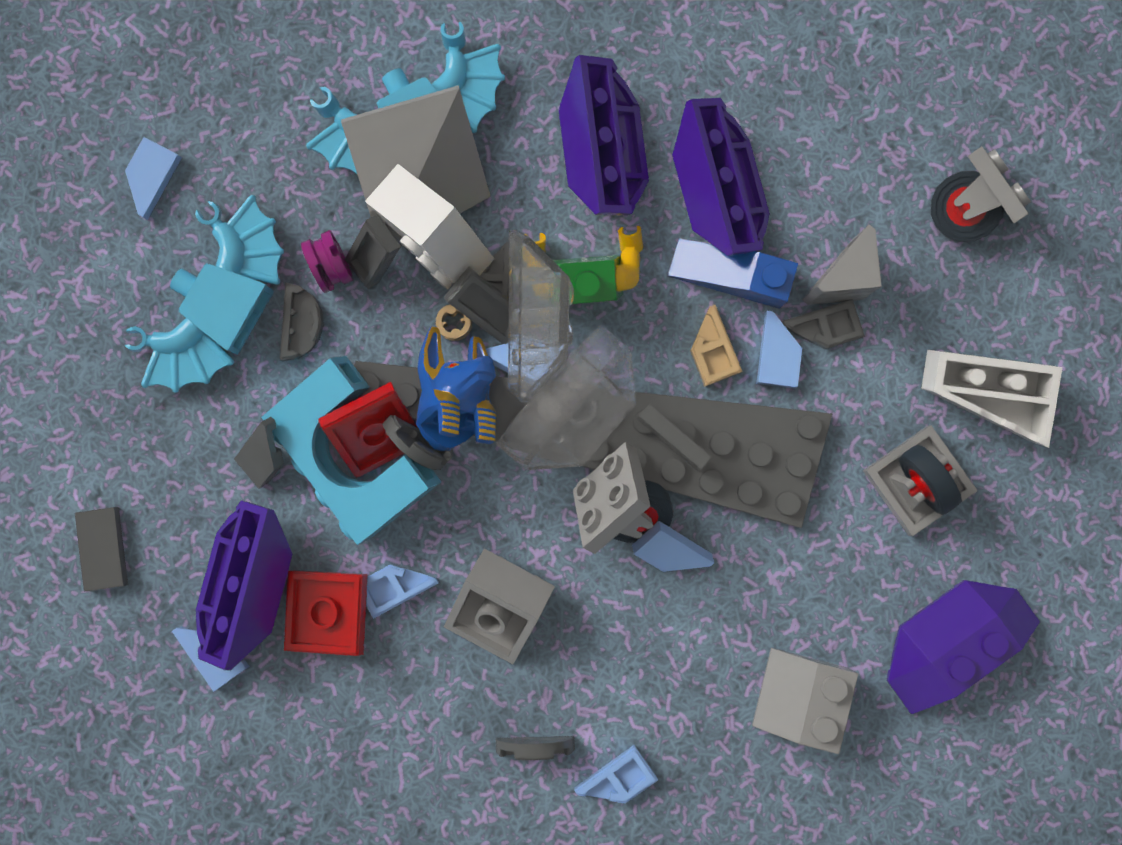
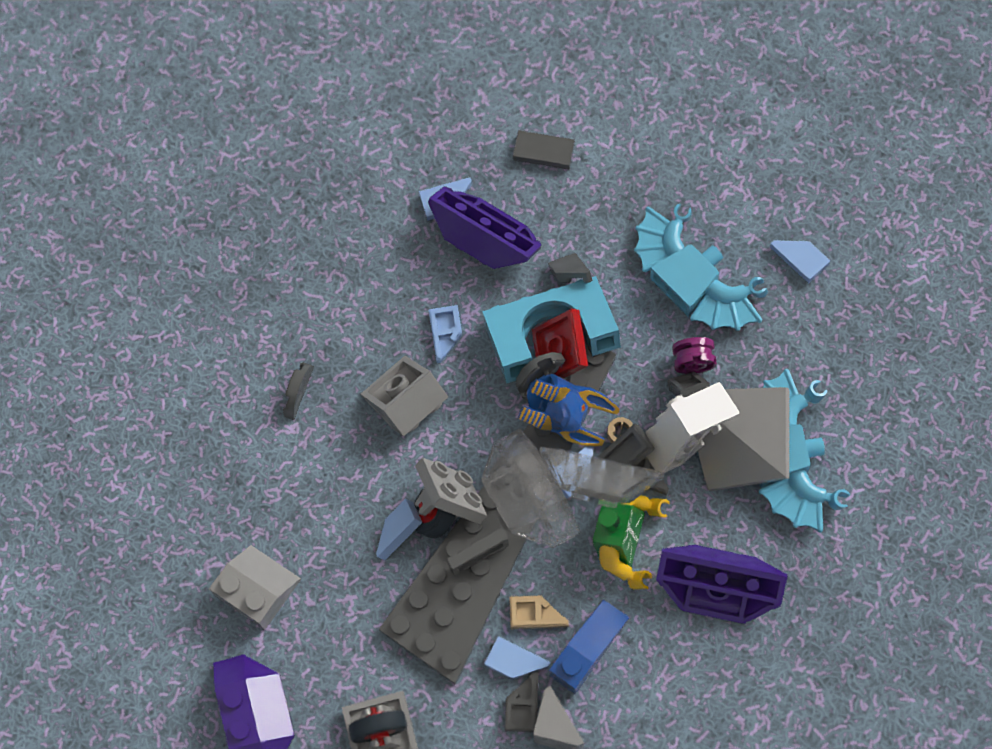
camera: 110 degrees right, 15 degrees down
(300, 324) = (658, 327): dark grey tile -> none
(325, 612) = (444, 279): red tile -> none
(620, 778) = (252, 440): light blue tile -> none
(720, 178) = (660, 661): dark purple wedge -> none

